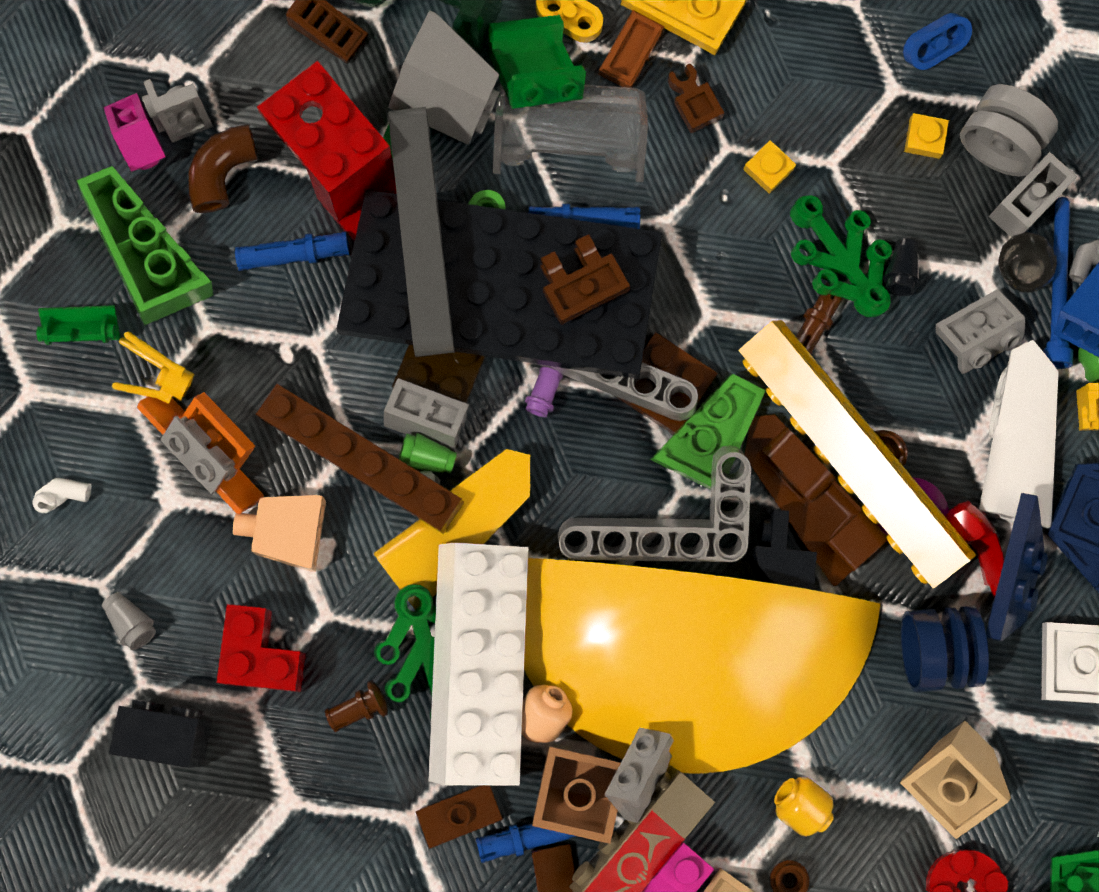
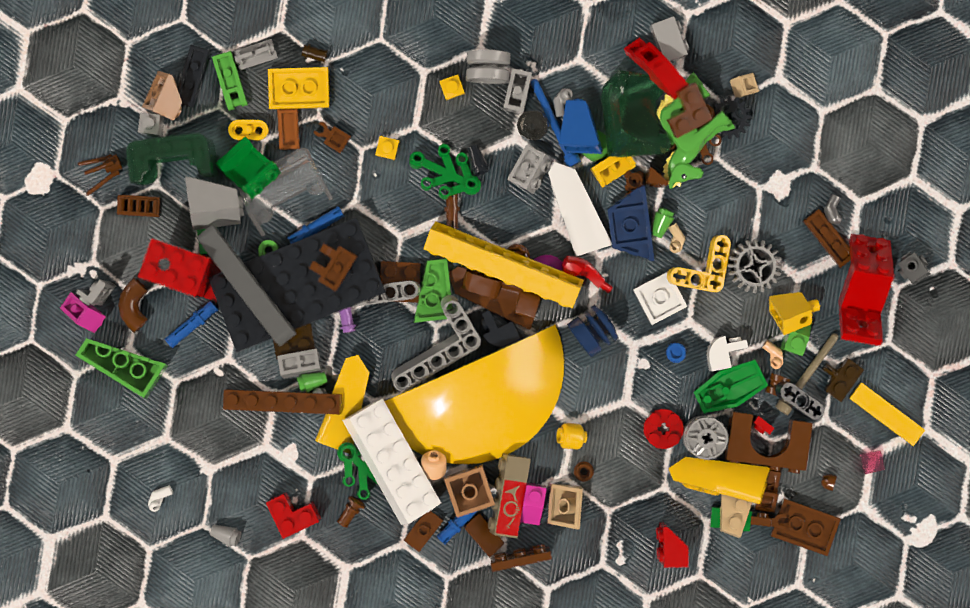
camera: 25 degrees left, 10 degrees up
(78, 324) = (120, 415): green hinge -> none
(159, 736) = (273, 575): black brick -> none
(172, 378) = (176, 416): yellow plant -> none
(189, 445) = (201, 442): light grey hinge -> none
(238, 491) = (211, 436): orange bracket -> none
(285, 529) = (269, 453): light nougat torso -> none
(639, 773) = (489, 467): light grey bracket -> none
(935, 43) = (430, 38): blue plate -> none
(958, 781) = (632, 384): tan slope -> none
(1021, 567) = (607, 276): dark blue wing -> none
(1057, 771) = (675, 352): none -> blue tile

